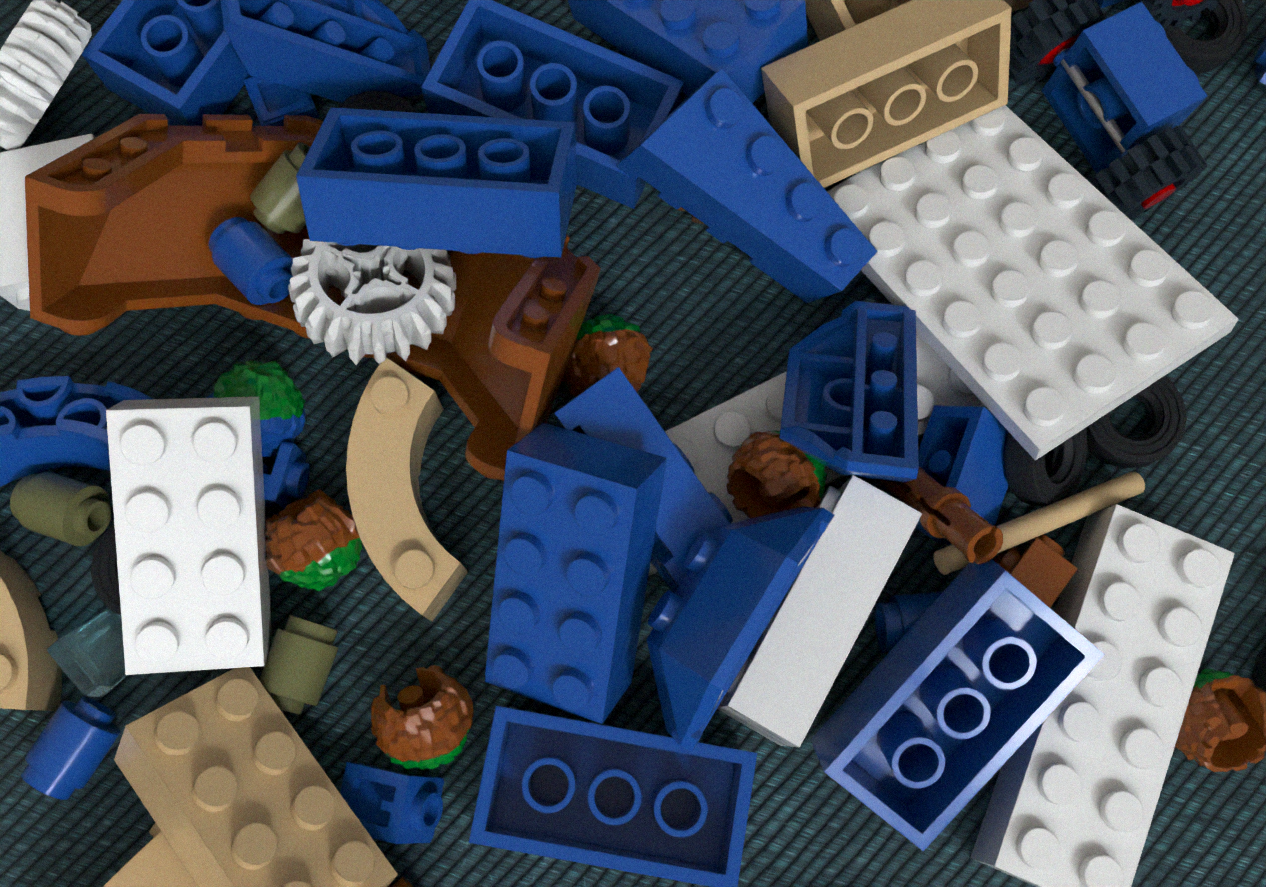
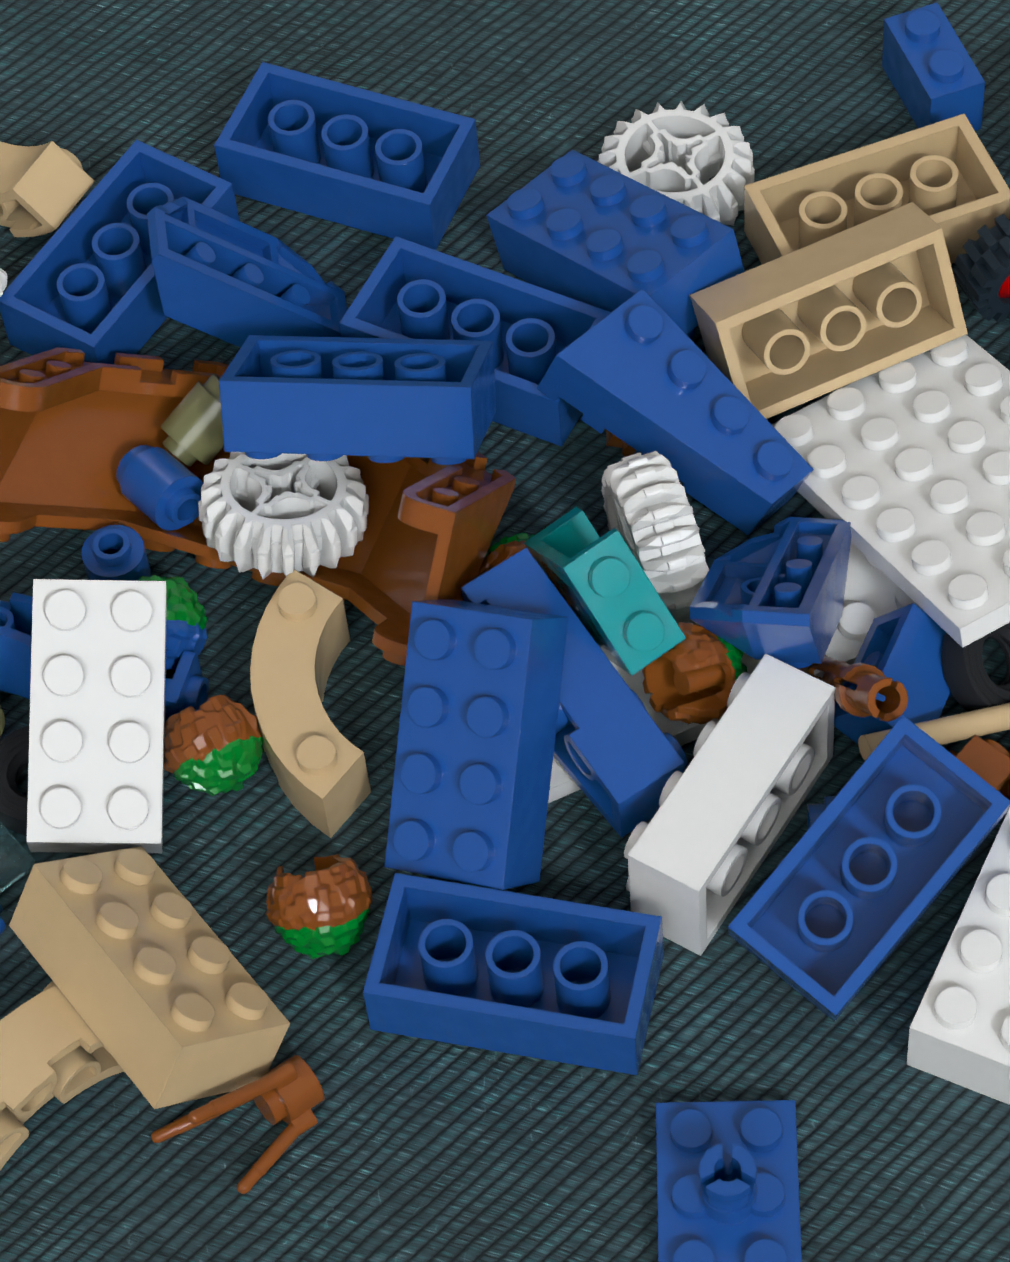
camera: 15 degrees right, 20 degrees down
(213, 341) = (115, 554): none -> blue brick
(275, 100) = (183, 344): blue tile -> none
(299, 664) = (196, 856): olive brick -> none
(393, 803) = (296, 986): blue bracket -> none
(694, 402) = (606, 590): none -> teal panel
(722, 610) = (625, 764): blue wedge -> none
(733, 322) = (657, 525): none -> white gear

